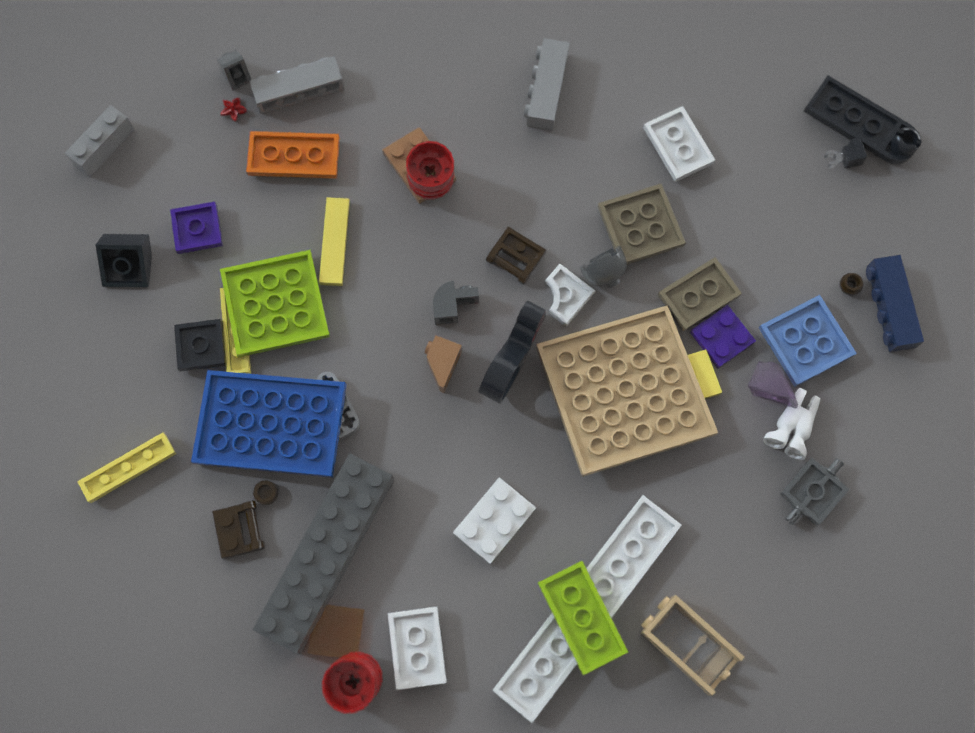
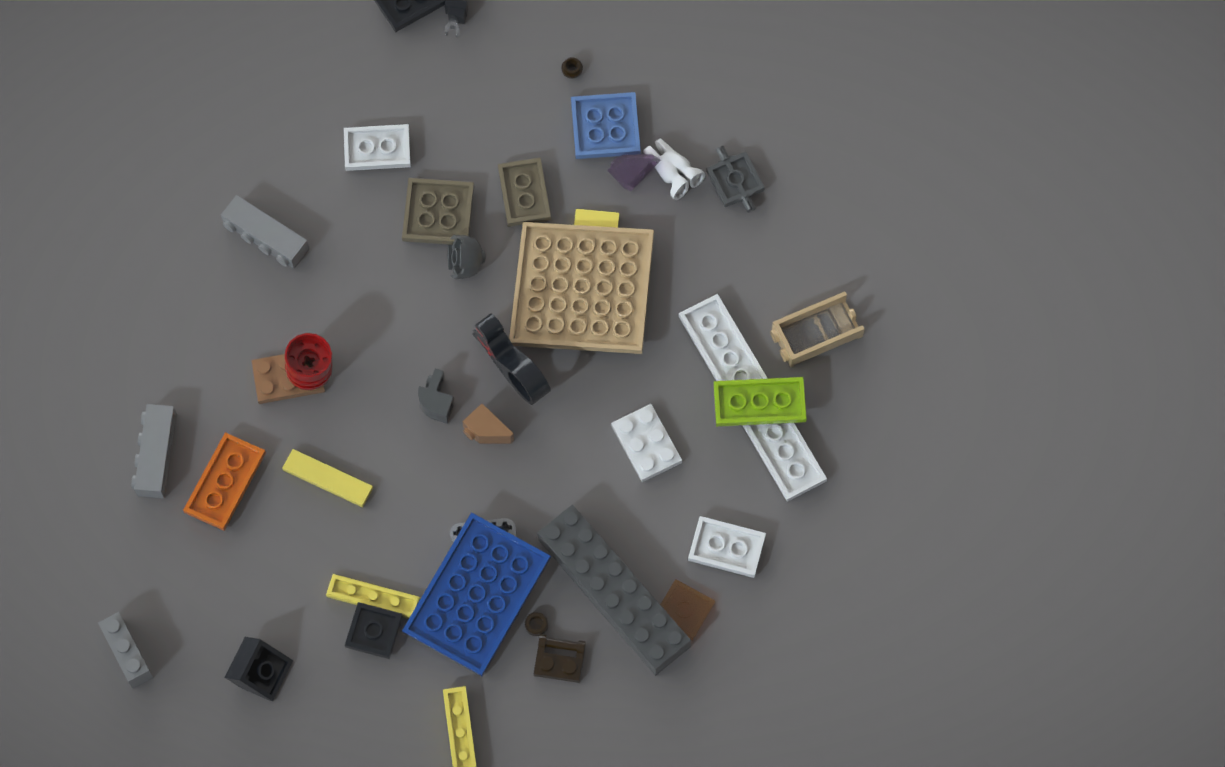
camera: 65 degrees left, 5 degrees down
(196, 227) = (256, 594): dark purple plate -> none
(233, 108) = (148, 519): red plant -> none
(234, 69) = (110, 500): dark grey slope -> none
(274, 303) = (364, 550): lime plate -> none
(348, 695) = (745, 598): red wheel -> none
(520, 249) = (413, 321): dark brown plate -> none
(569, 294) = (471, 299): white tile -> none
(722, 336) = (570, 190): dark purple plate -> none
(894, 303) = (605, 42): dark blue brick -> none

